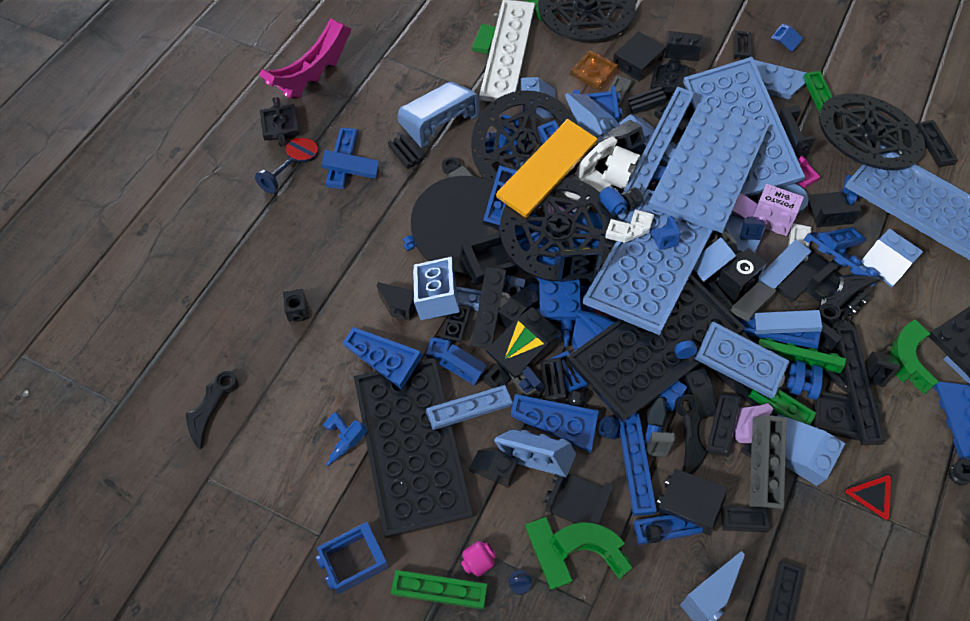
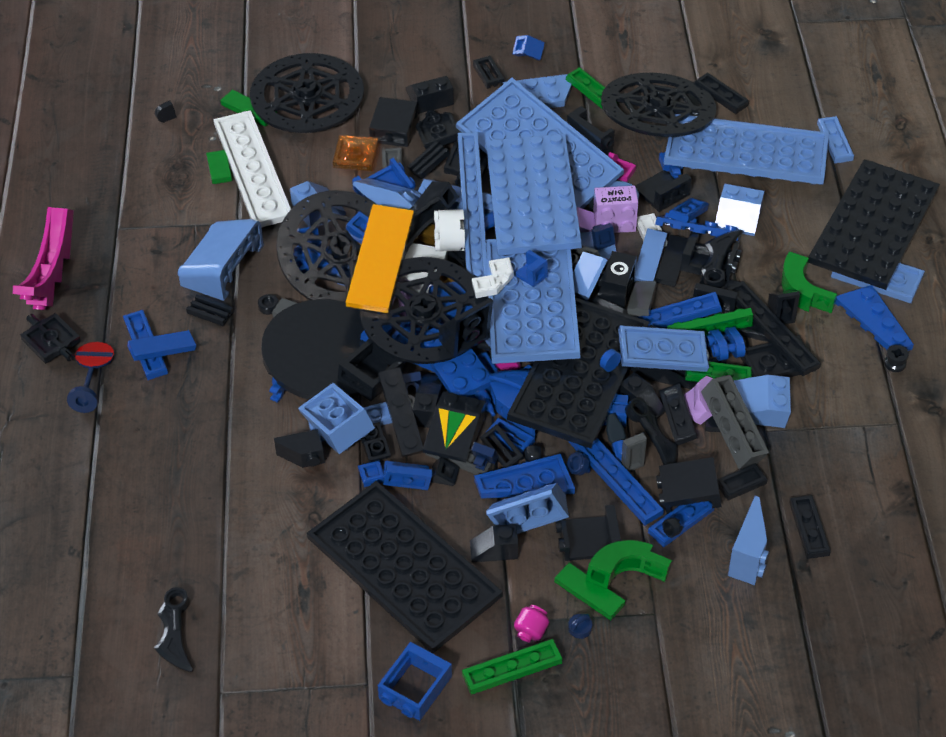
camera: 30 degrees left, 10 degrees down
(295, 298) = (194, 494): black brick -> none
(349, 435) = (339, 586): blue piece -> none
(385, 356) = (327, 500): blue wing -> none
(469, 407) = (438, 506): medium blue tile -> none
(495, 205) = (345, 317): blue slope -> none
(600, 151) = (416, 237): white tile -> none
(613, 200) = (464, 261): blue brick -> none
(633, 198) = (479, 252): black wheel -> none
(788, 322) = (683, 300): medium blue tile -> none
(874, 495) = (835, 409): piece -> none

